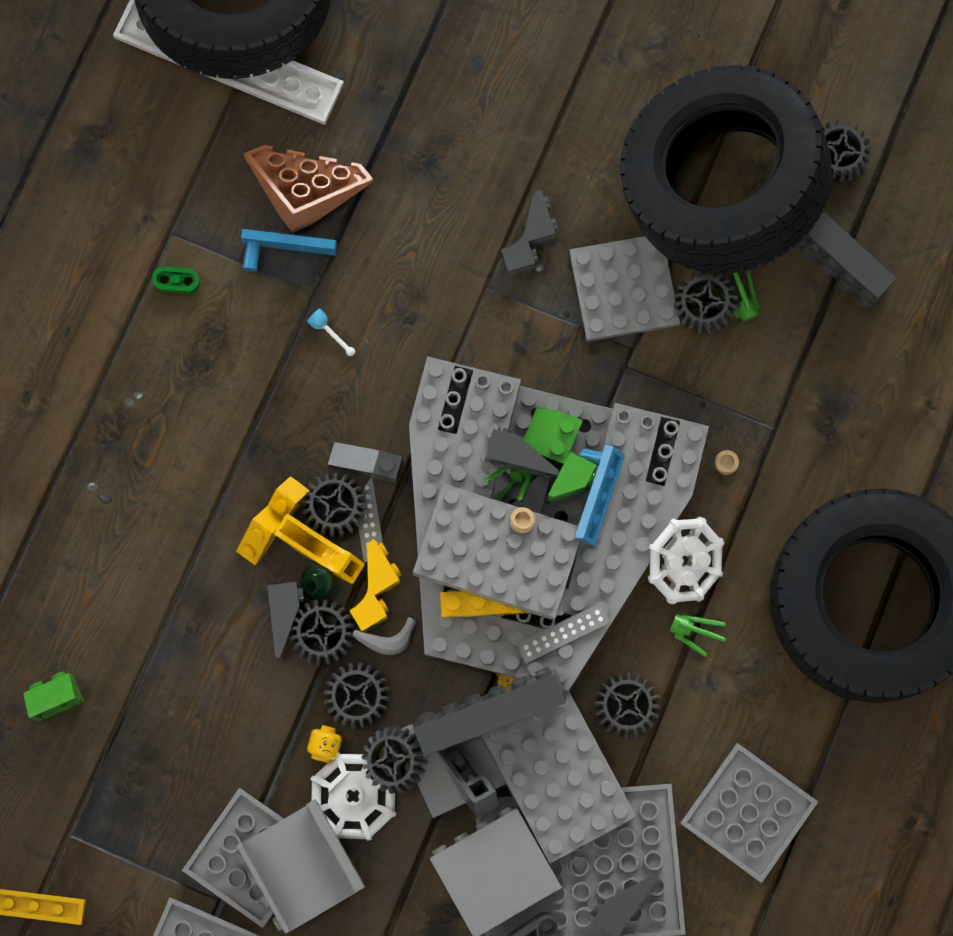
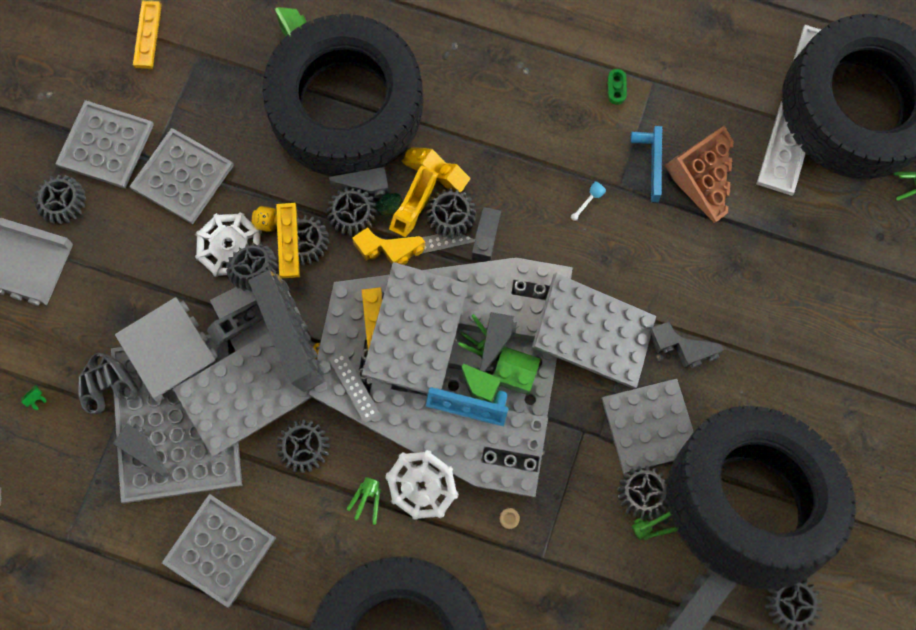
camera: 85 degrees right, 5 degrees down
(100, 586) = (333, 44): none -> black tyre
(299, 867) = (172, 207): light grey panel -> none
(362, 712) = (287, 240): none -> yellow plate
(388, 645) = (343, 259): light grey piece -> none
(508, 339) = (594, 331): none -> light grey plate
(522, 520) = (441, 344): tan tile -> none

